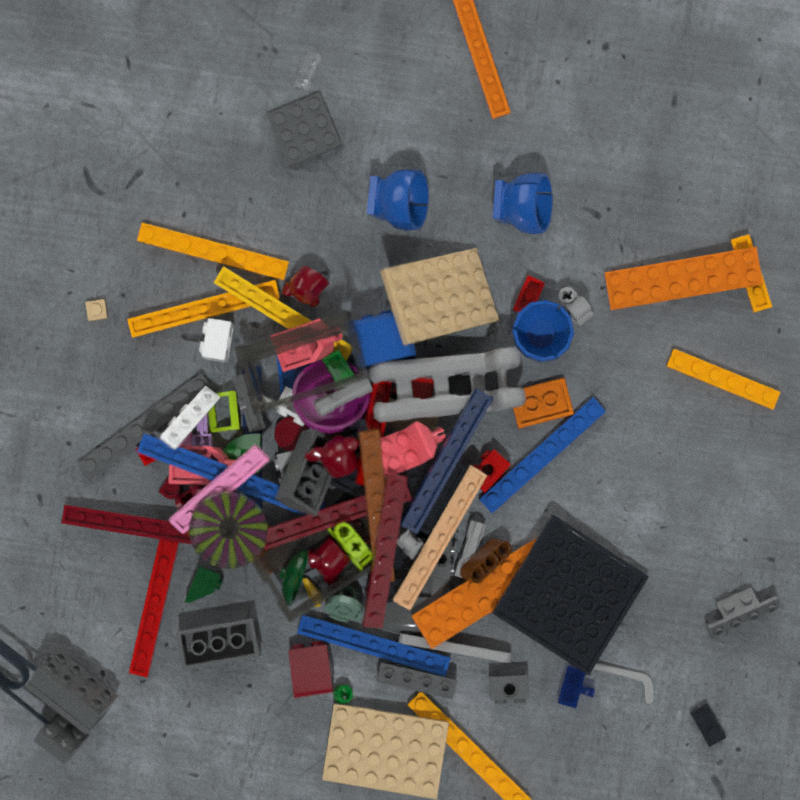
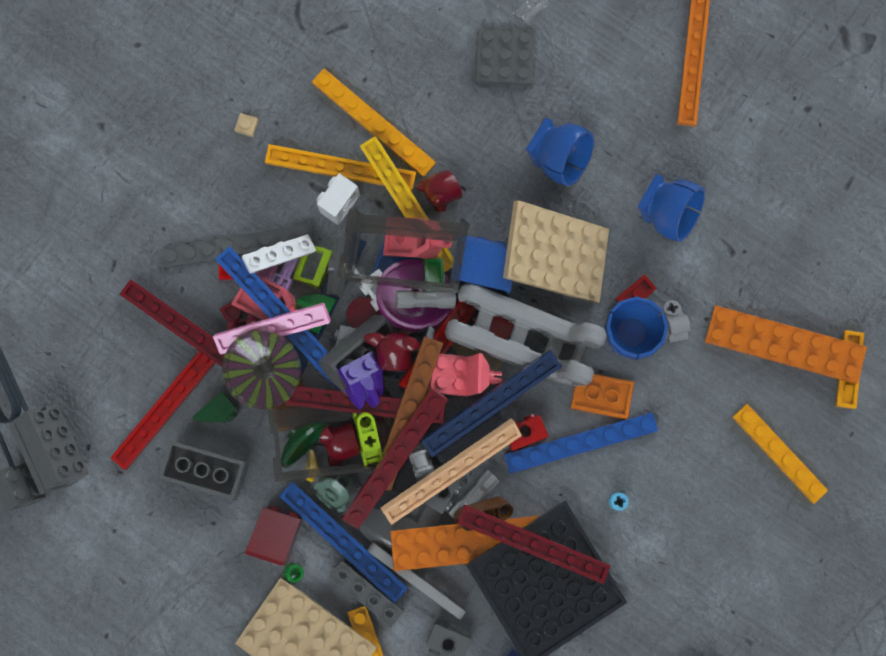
camera: 25 degrees right, 5 degrees down
(324, 496) = (363, 380): none -> dark purple plate
(542, 566) = (533, 544): none -> dark red plate
(606, 491) = (624, 504): none -> medium azure bush

